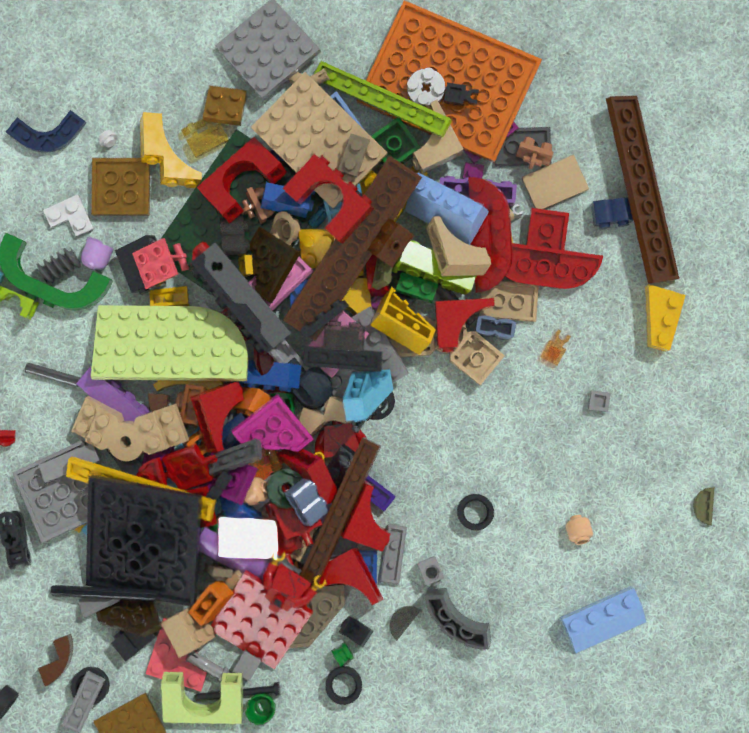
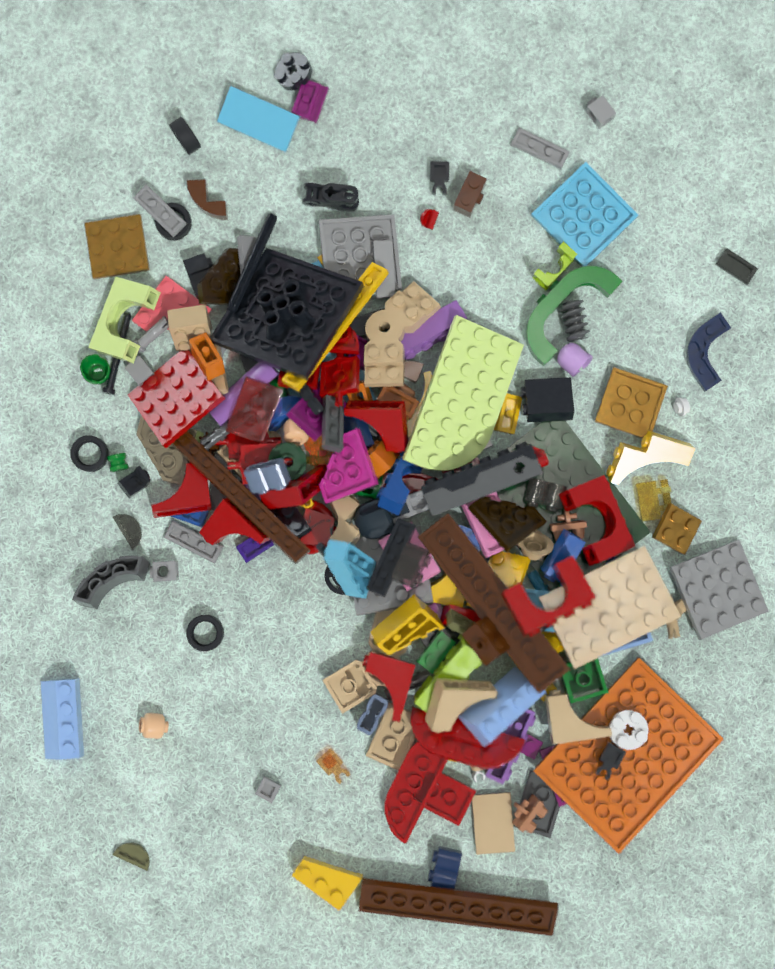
camera: 115 degrees right, 0 degrees up
(52, 374) = (473, 281): dark grey axle -> none
(72, 211) = (624, 349): white plate -> none
(157, 263) = (543, 412): coral plate -> none
(218, 571) = (234, 373): dark tan plate -> none
(245, 265) = (513, 495): yellow tile -> none
(285, 587) = (194, 430): red torso -> none
(323, 318) = (435, 551): black plate -> none
(353, 155) = (582, 635): dark tan plate -> none
(385, 100) = (628, 685): lime plate -> none

